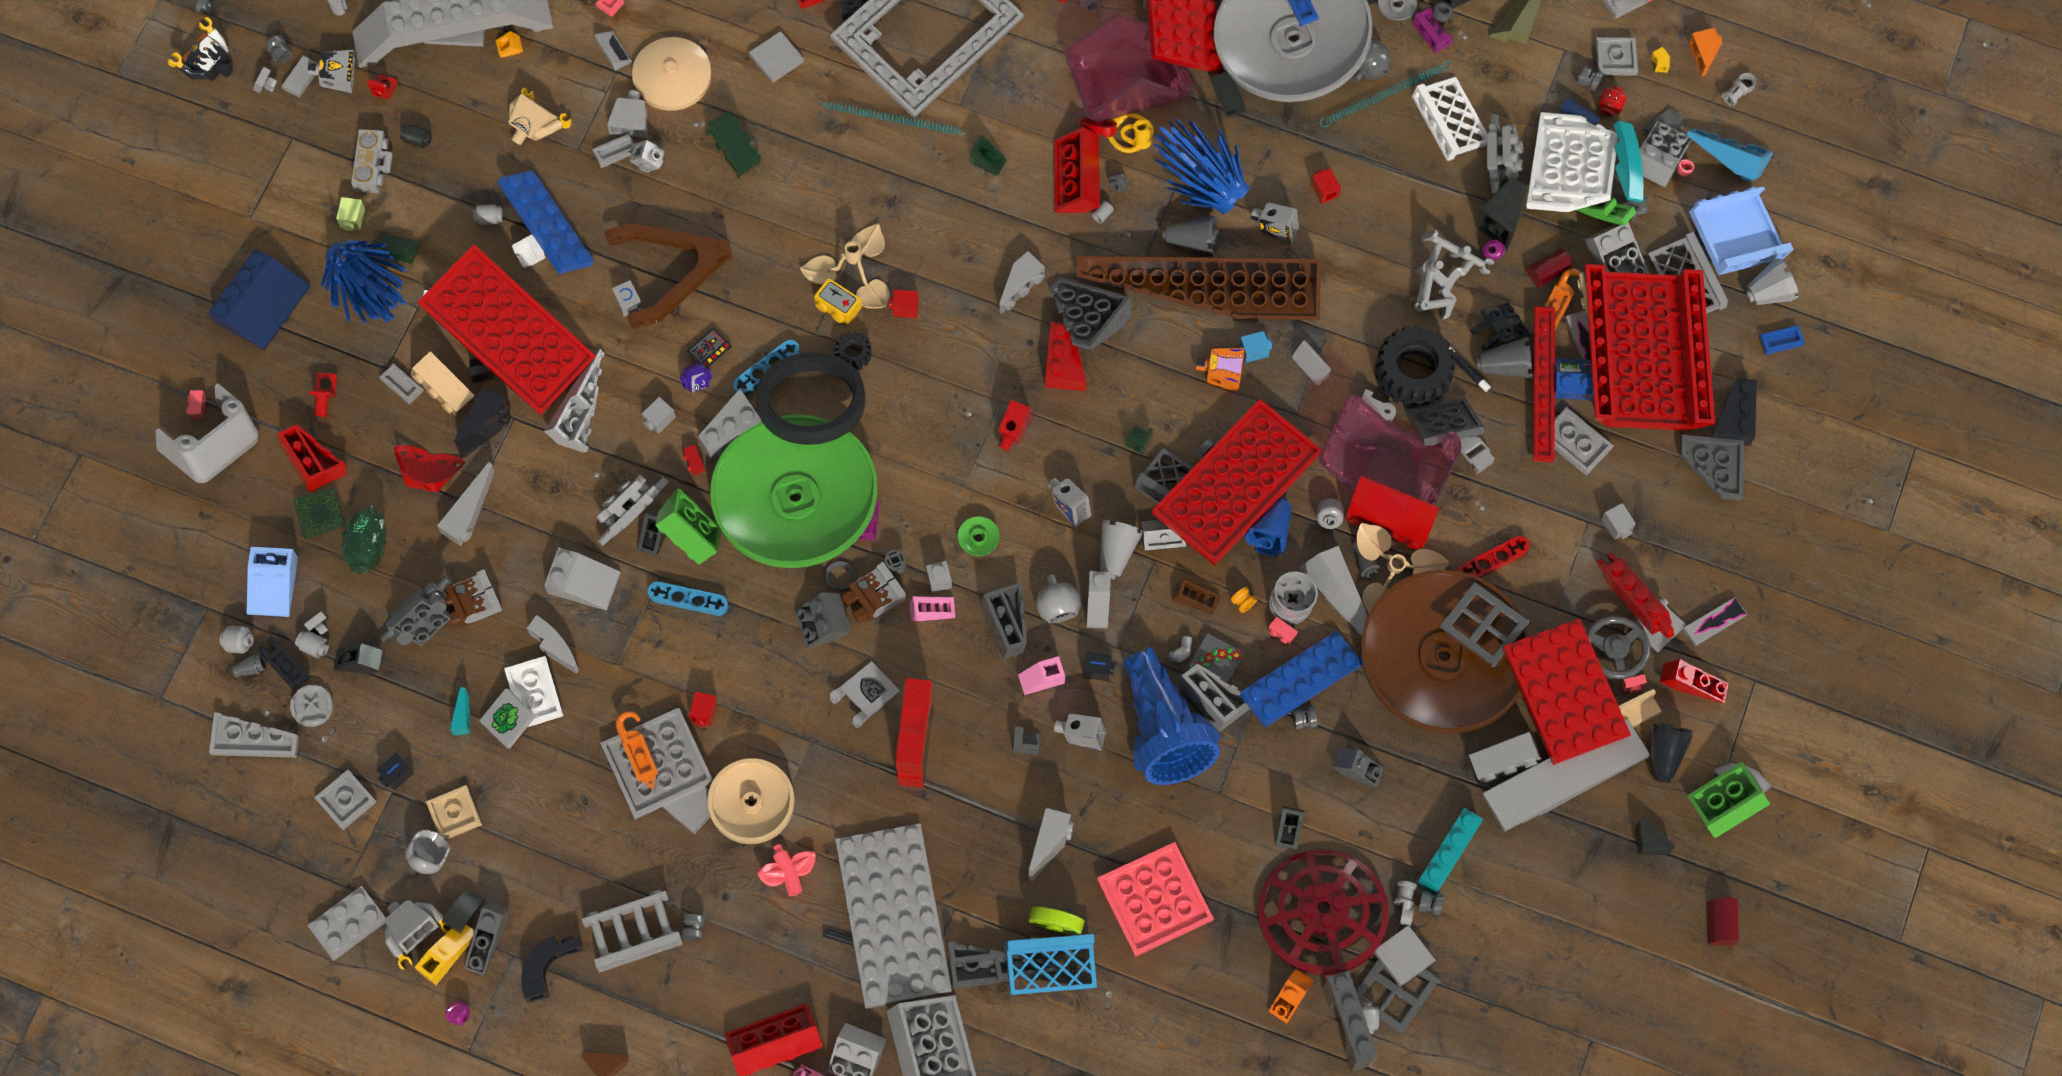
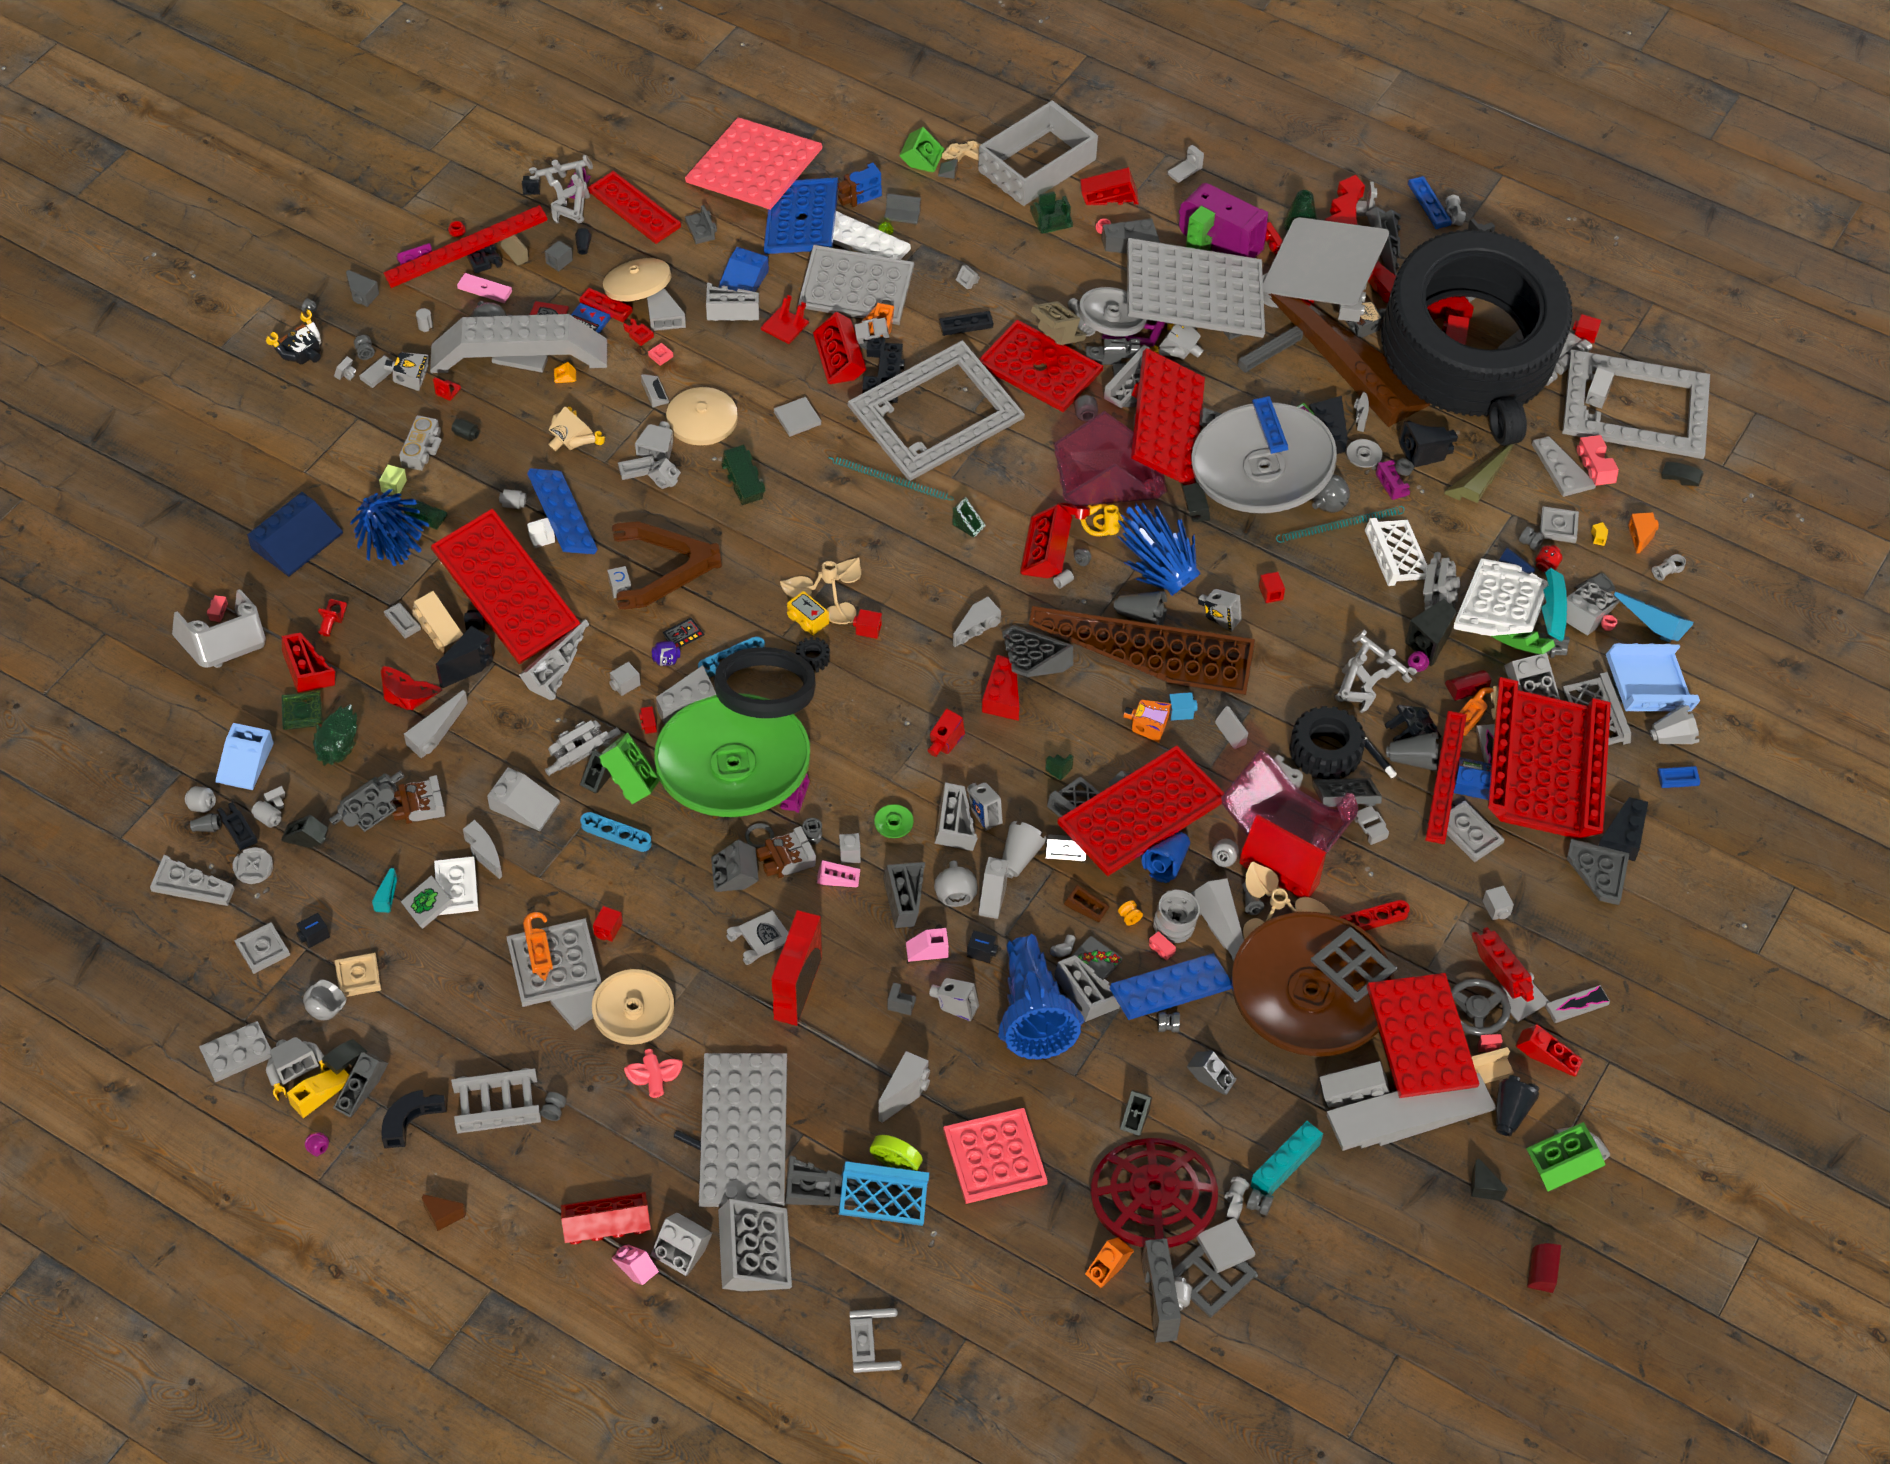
camera: 10 degrees right, 15 degrees down
(1041, 524) = (954, 819): none -> light grey wedge

